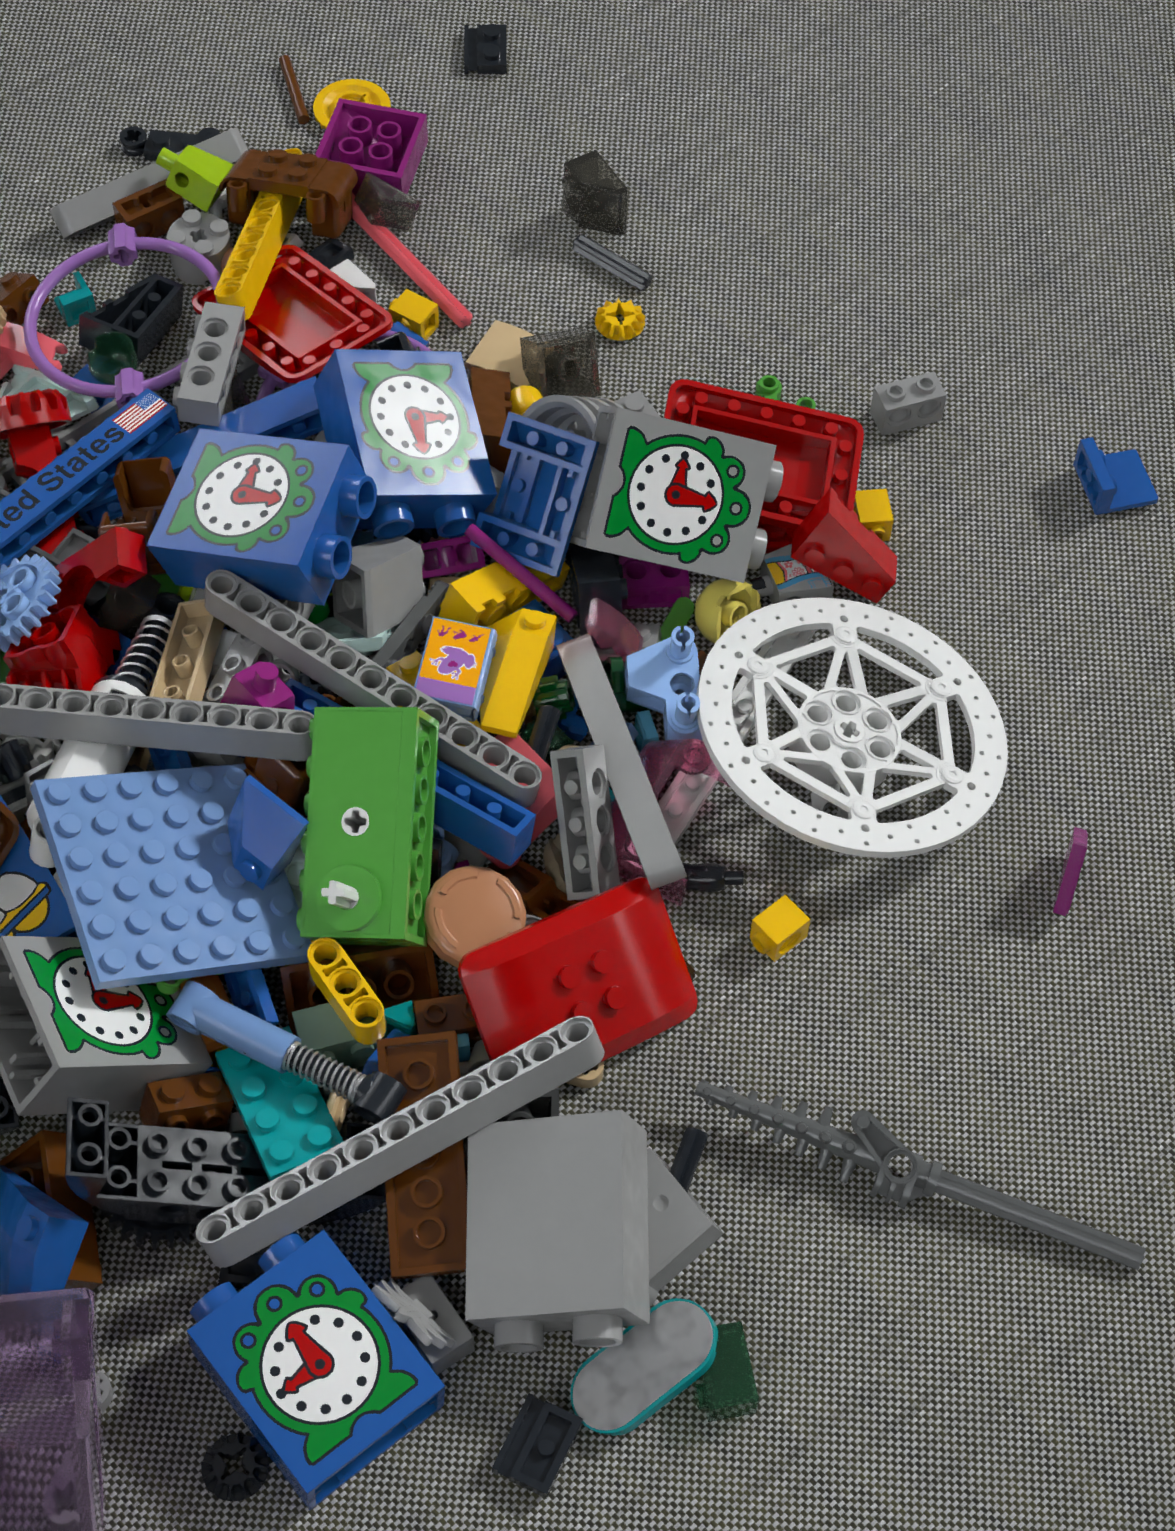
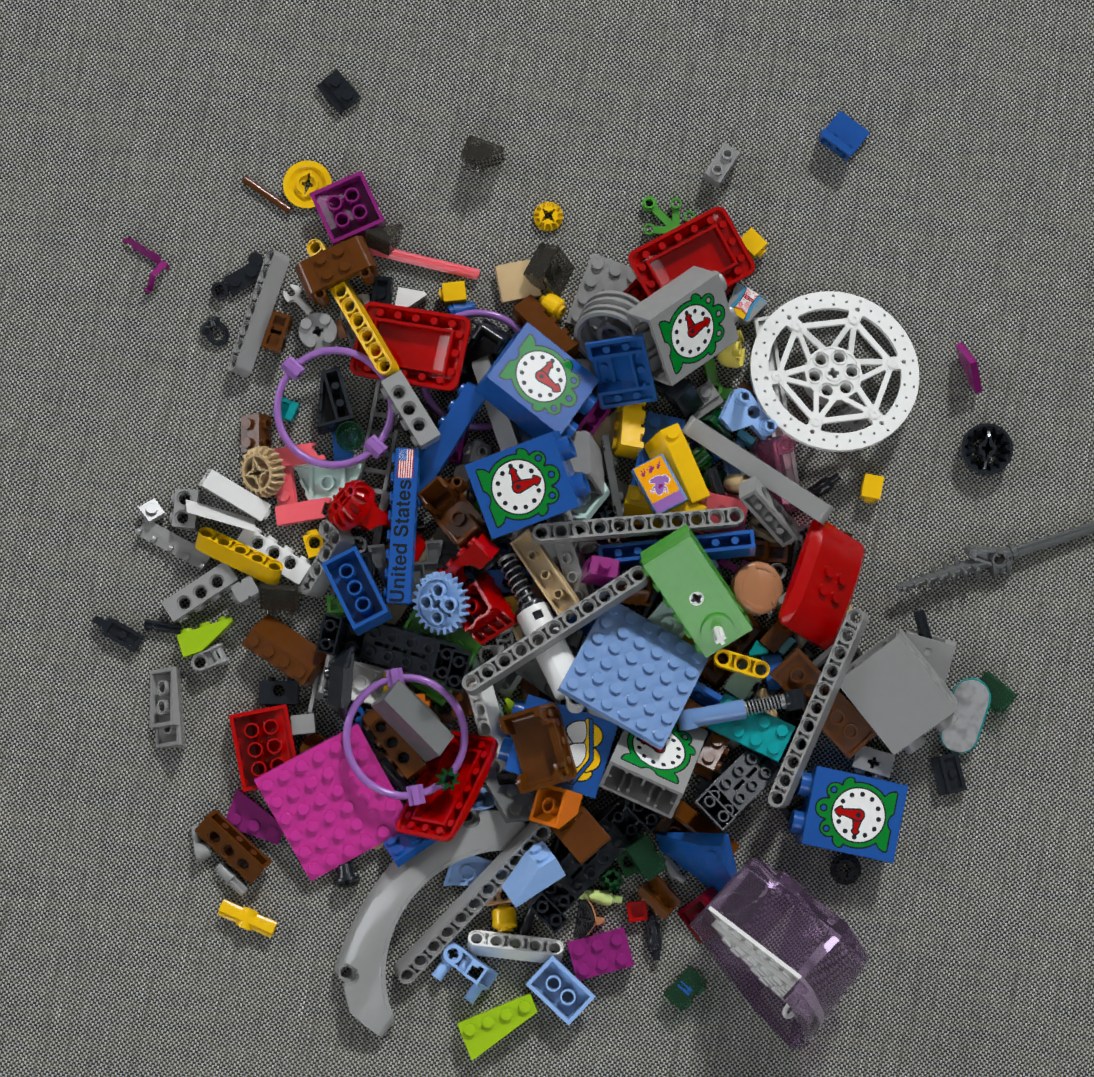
camera: 35 degrees left, 25 degrees up
(71, 171) = (205, 330): none -> black piece
(94, 59) = (152, 256): none -> magenta piece
(194, 175) = (287, 298): lime torso -> none
(263, 833) = (658, 630): blue slope -> none
(412, 1313) = (870, 767): light grey piece -> none
(521, 573) = (638, 408): magenta bar -> none
(612, 262) = (516, 184): black axle -> none
(612, 629) = (703, 407): clear pink slope -> none
(844, 550) = (762, 281): red wedge -> none
(1012, 977) = (991, 436): none -> black gear

